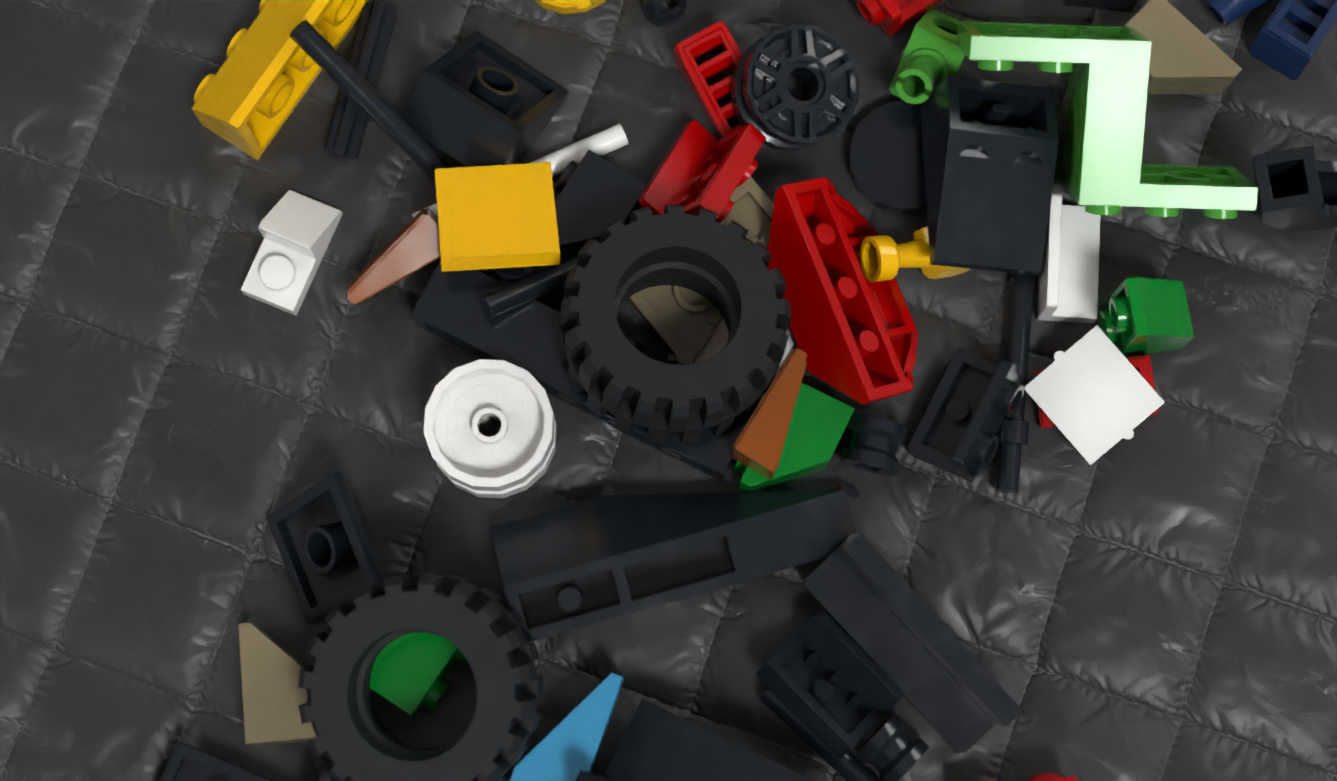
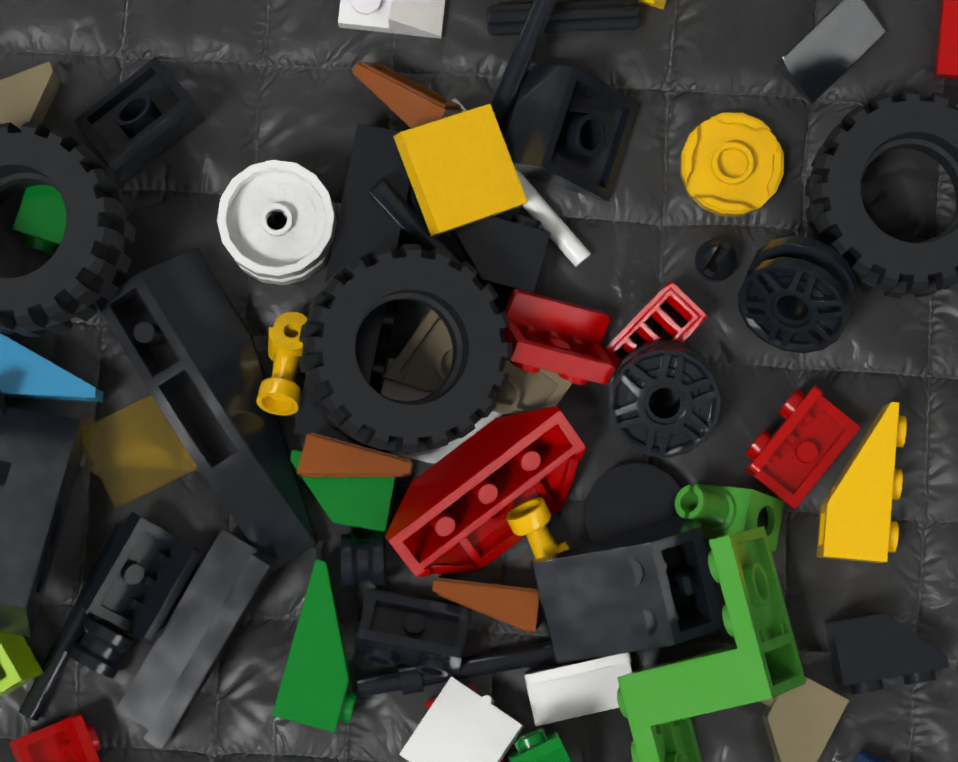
camera: 75 degrees right, 5 degrees up
(629, 457) = (280, 393): none -> yellow leg
(687, 654) = (136, 451): none -> clear yellow piece
(963, 308) = (505, 603): none -> dark orange slope
(976, 525) = (317, 667): none -> green slope

